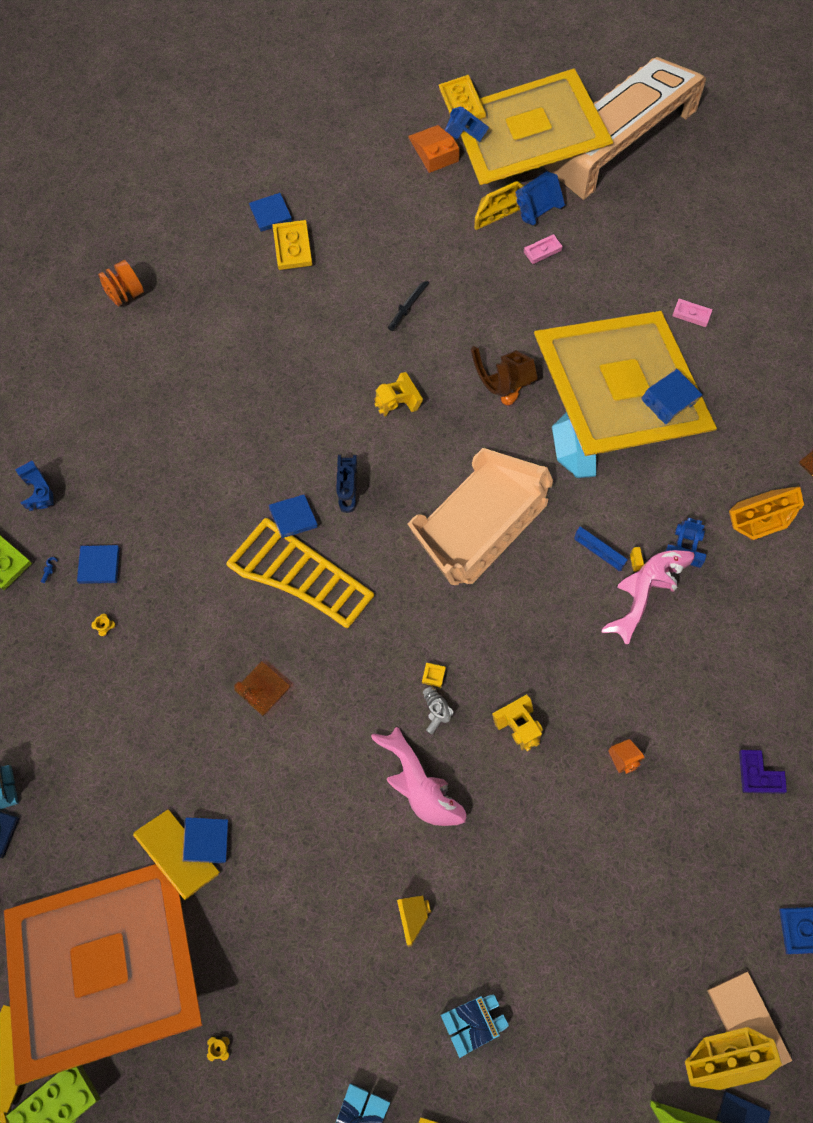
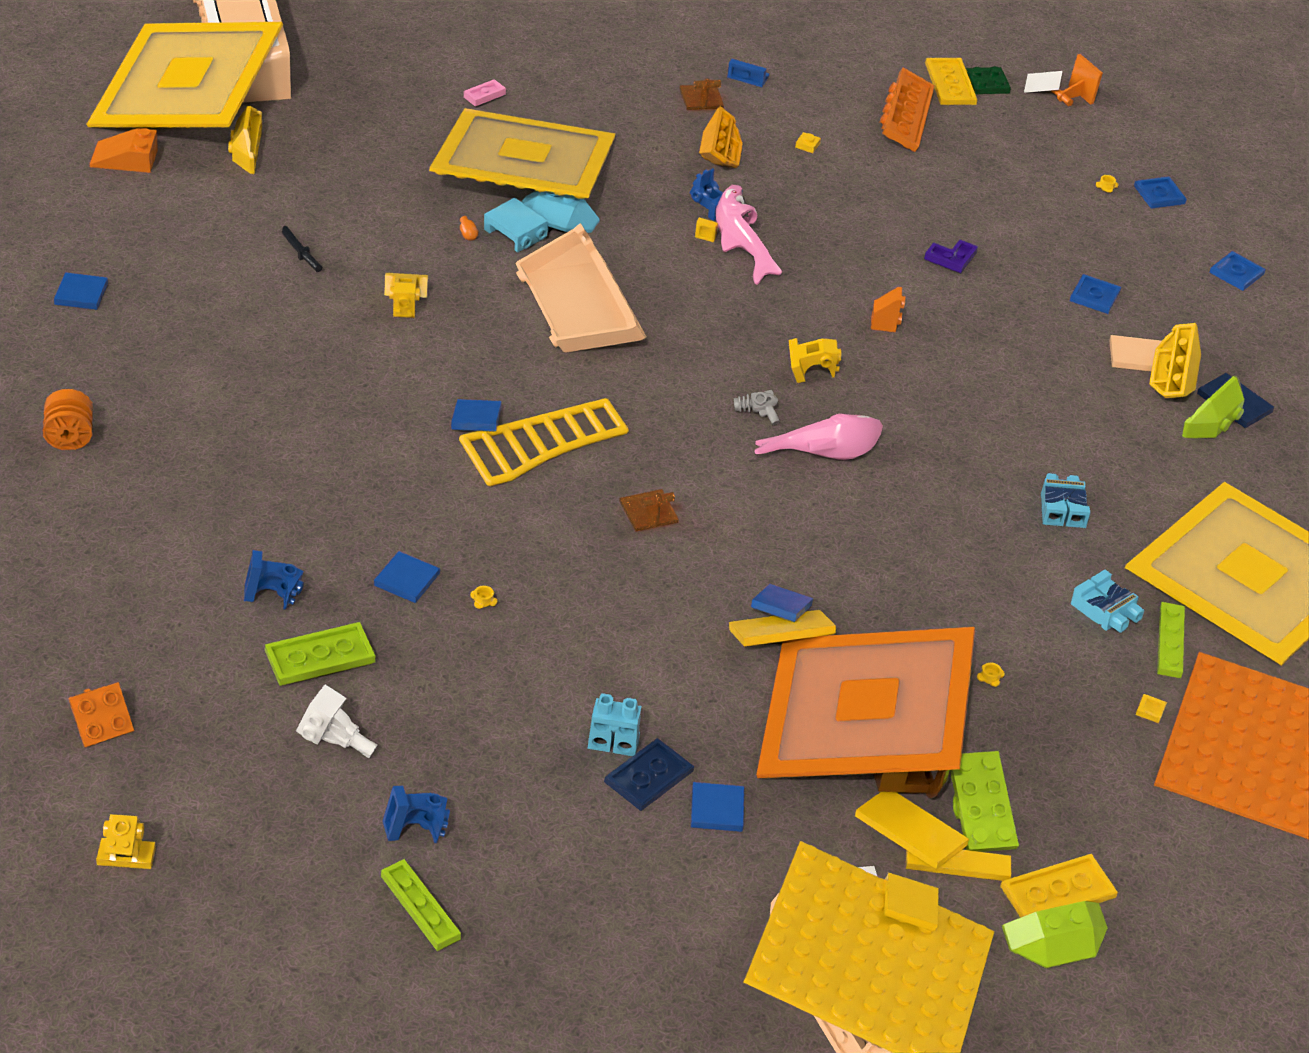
camera: 70 degrees left, 25 degrees down
(48, 570) = (379, 617): blue hand -> none
(292, 245) = (144, 290): yellow plate -> none
(346, 481) = (476, 358): dark blue piece -> none
(413, 916) = (951, 497): yellow slope -> none
(433, 675) = (722, 394): yellow plate -> none
(462, 93) = (92, 109): yellow tile -> none
(463, 120) = (144, 97): blue tile -> none
(512, 373) = (453, 208): reddish brown piece -> none
(535, 423) = (517, 223): none -> medium azure panel
(539, 197) = (270, 108): blue panel -> none
(543, 249) = (325, 141): bright pink plate -> none
(600, 549) = (678, 244): blue tile -> none
(671, 396) = (569, 132): blue panel -> none

